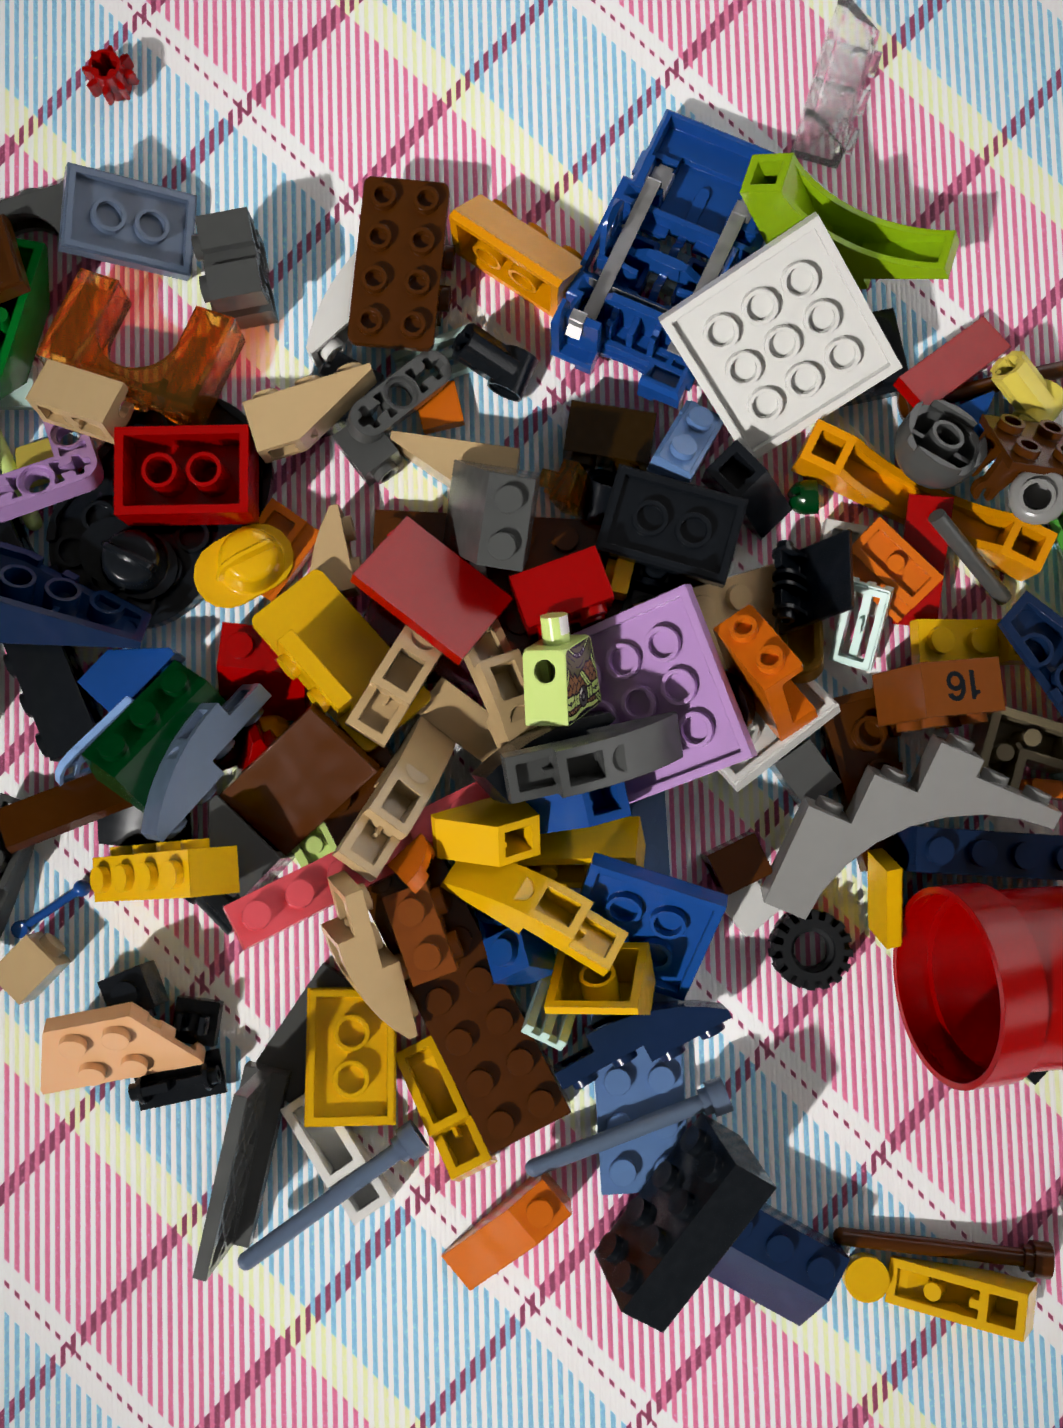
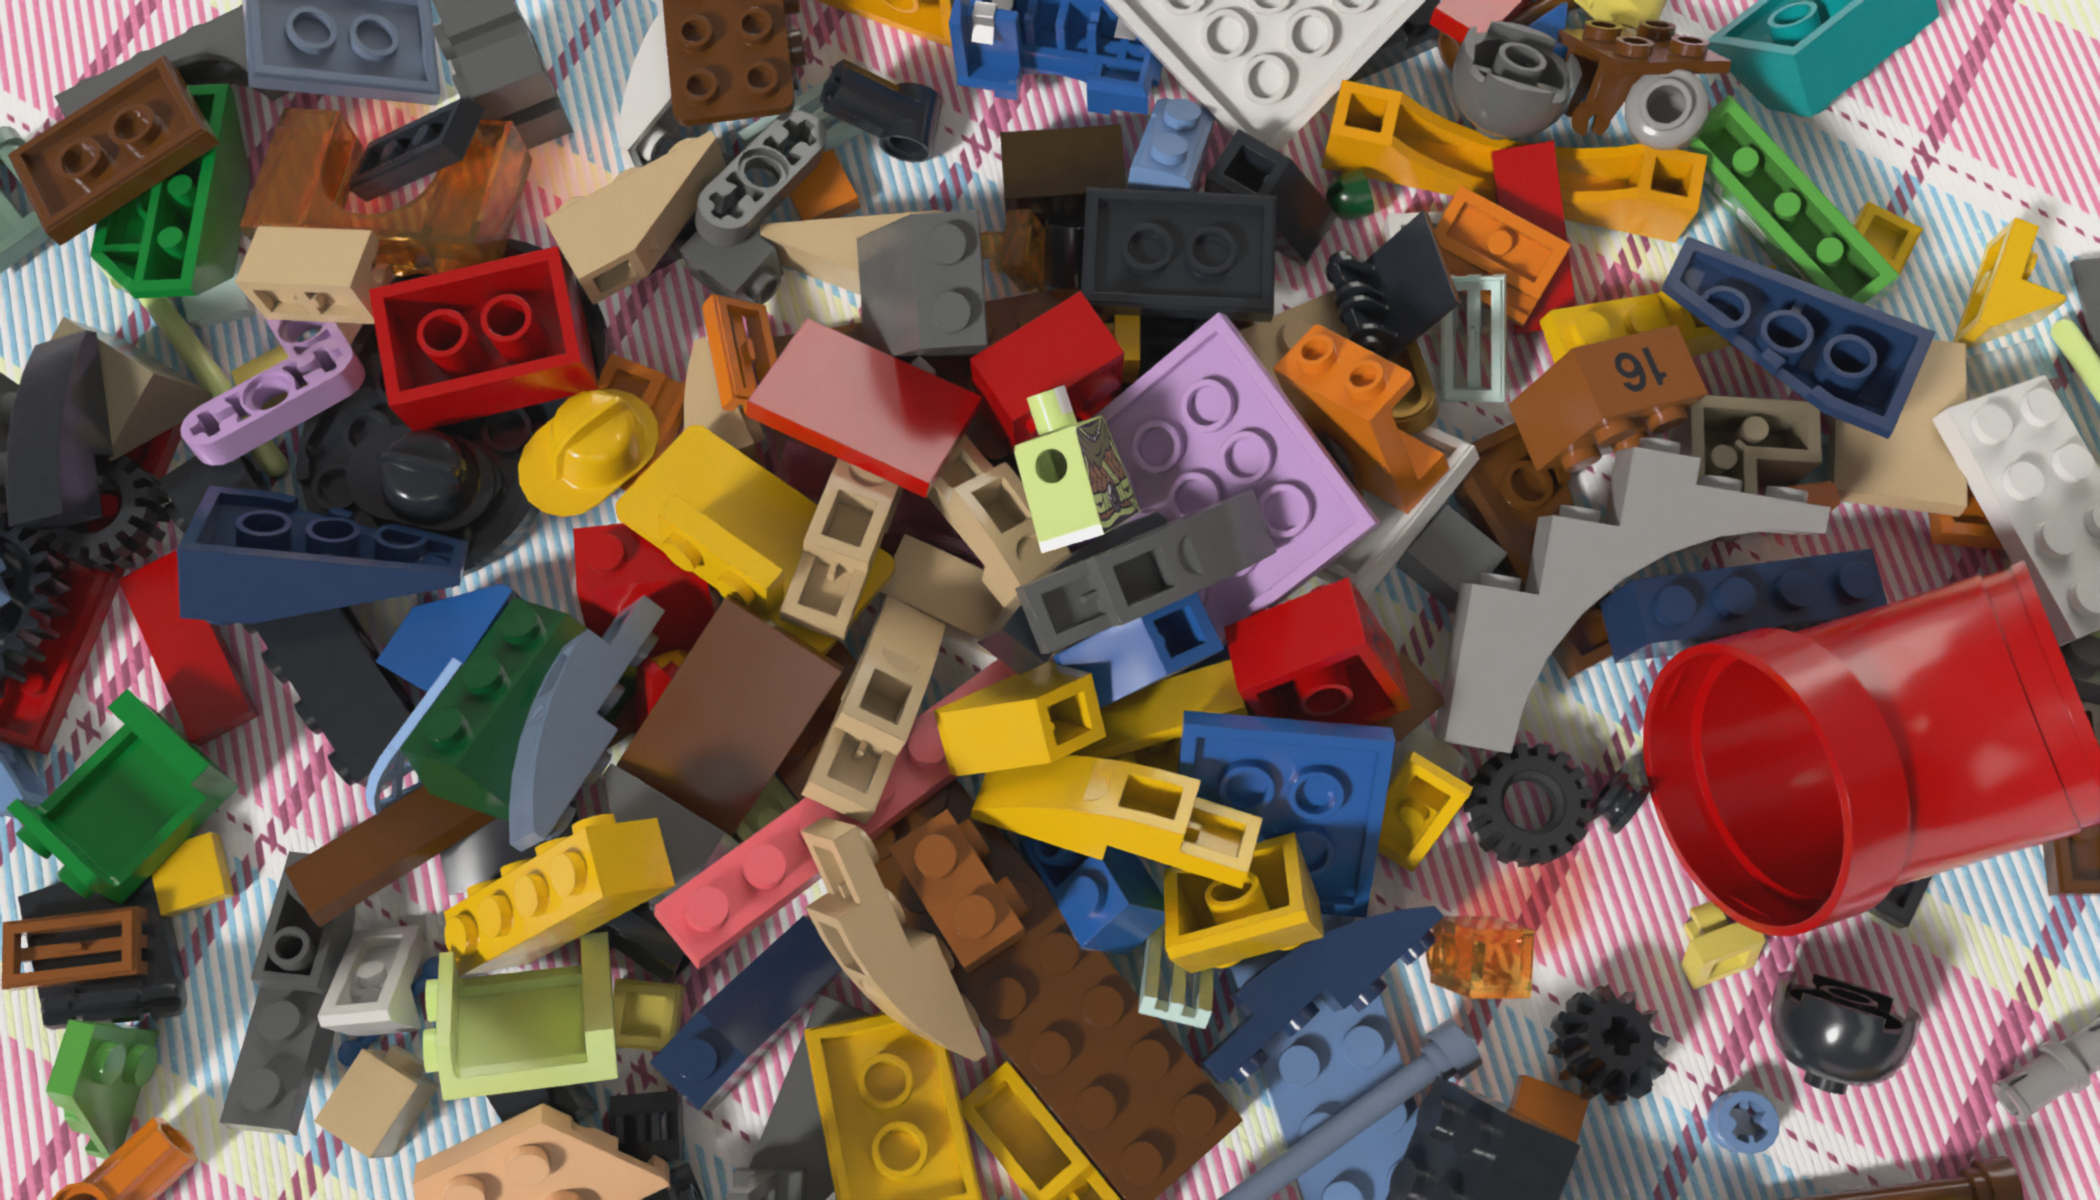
camera: 15 degrees left, 10 degrees down
(41, 891) = (374, 983): none -> white slope
(128, 946) = (522, 1026): none -> yellowish green panel
(166, 323) = (416, 149): none -> black tile
(209, 949) = (646, 1013): none -> light yellow tile
(271, 969) = (748, 1017): none -> dark blue slope
(355, 519) = (733, 352): none -> orange tile
(413, 862) = (922, 788): orange tile -> none
(692, 834) = (1318, 659): none -> red brick
(739, 936) = (1418, 809): none -> yellow slope
(752, 1043) = (1482, 957): none -> clear orange brick
(769, 1147) = (1550, 1106): none -> orange tile
(811, 1132) = (1629, 1035): none -> black gear
(870, 960) = (1619, 801): none -> black bush
(885, 898) = (1615, 702): yellow tile -> none
(905, 1181) = (1763, 1119): none -> medium blue bush
(906, 1069) = (1717, 947): none -> light yellow tile
(969, 556) = (1597, 216): dark grey bar -> none
(970, 1142) = (1840, 1032): none -> black cylinder

